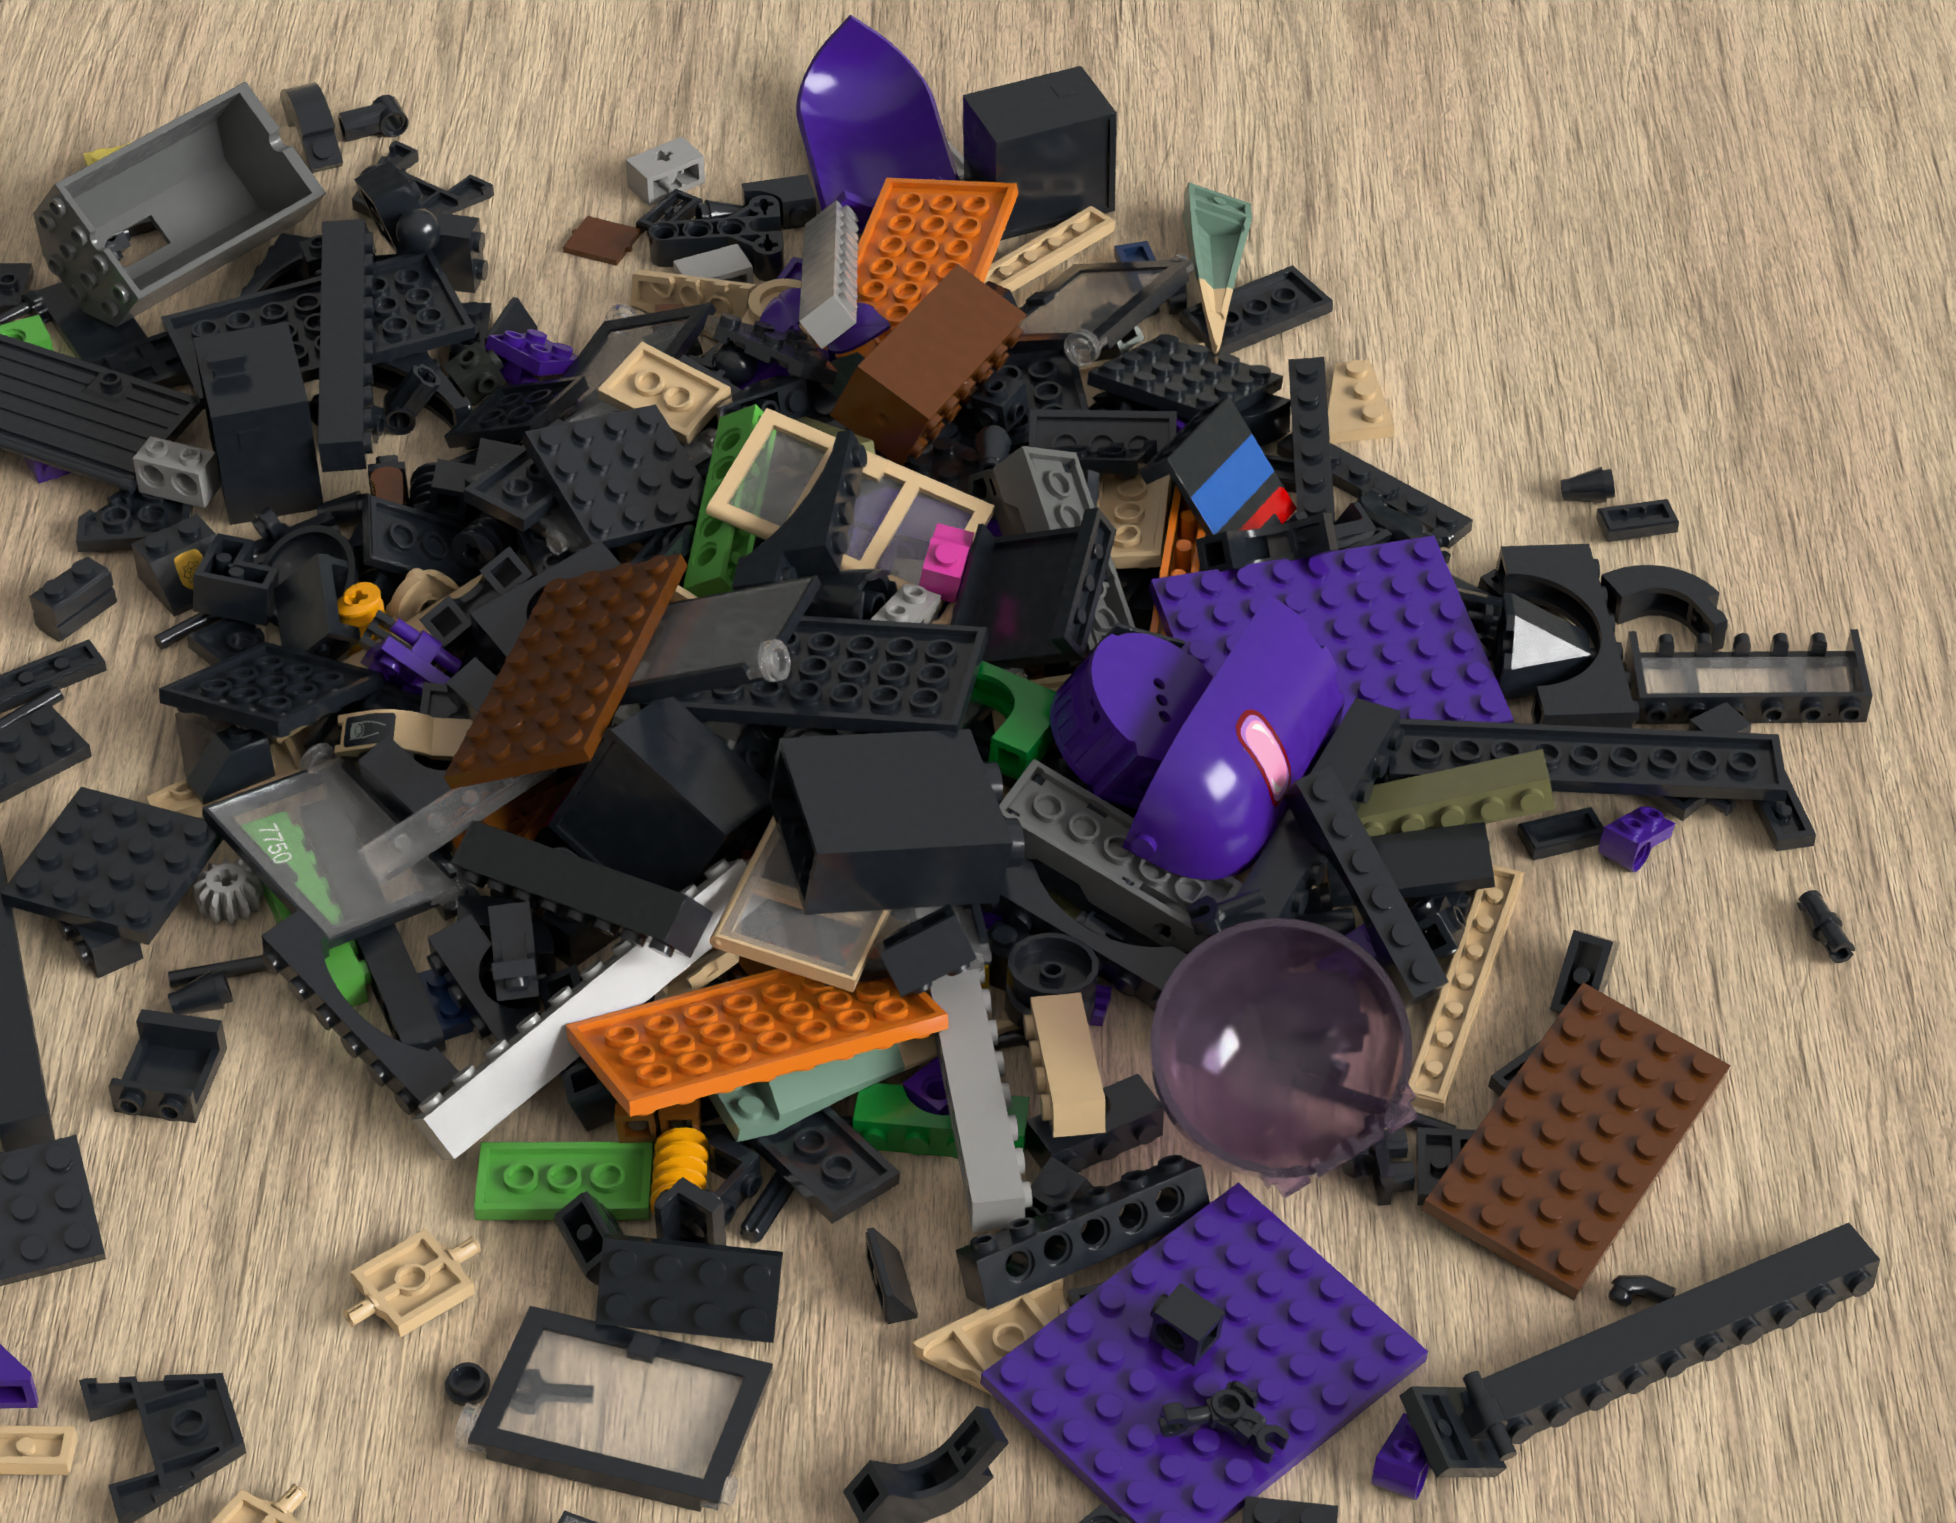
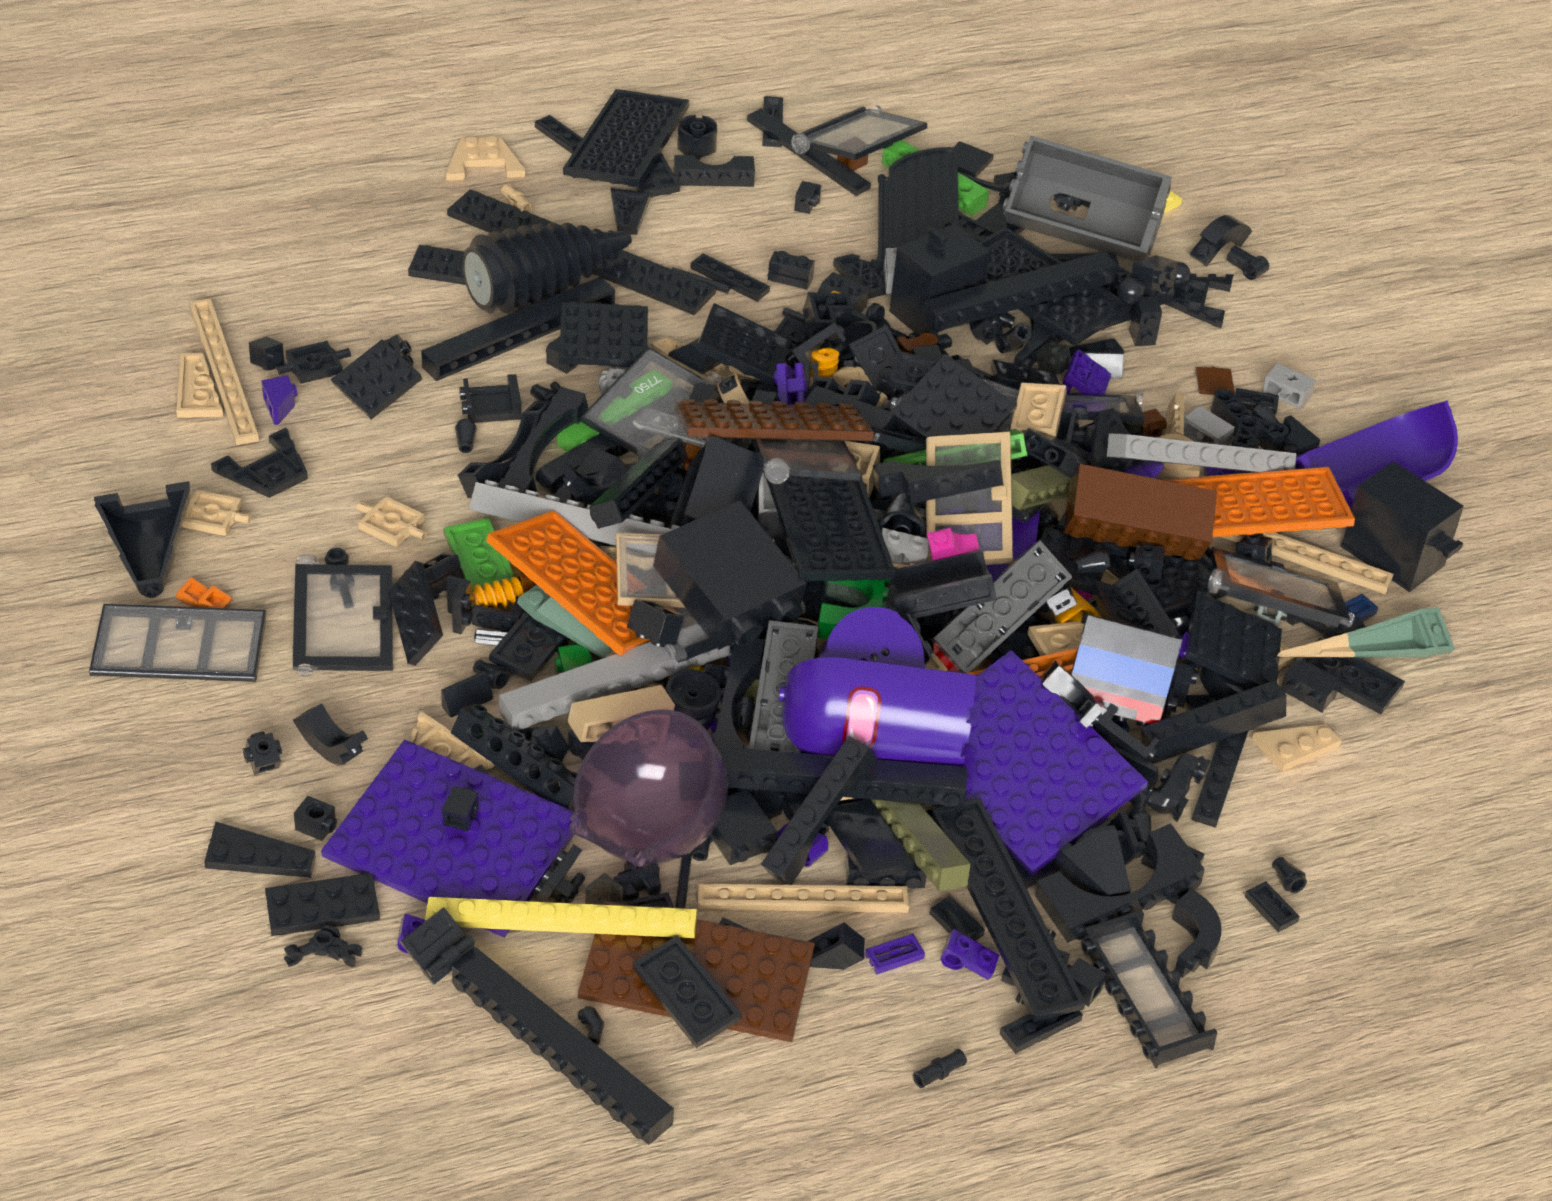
camera: 65 degrees right, 0 degrees up
(242, 1126) = (465, 434): none -> black cone
(327, 1062) = (497, 468): none -> black arch
(850, 1232) = (496, 674): none -> black cone
(1208, 915) = (759, 743): black bar -> none
(1230, 1412) = (413, 845): black piece -> none
(1265, 344) = (1310, 685): none -> black brick
(1363, 1244) = (553, 881): none -> black plate
(1399, 1209) = (602, 890): none -> clear smoke panel
(1440, 924) = (826, 865): black brick -> none
(1443, 1266) = (567, 917): none -> light yellow plate
(1595, 888) = (897, 956): none -> dark purple tile
(1636, 1148) = (686, 991): none -> black plate

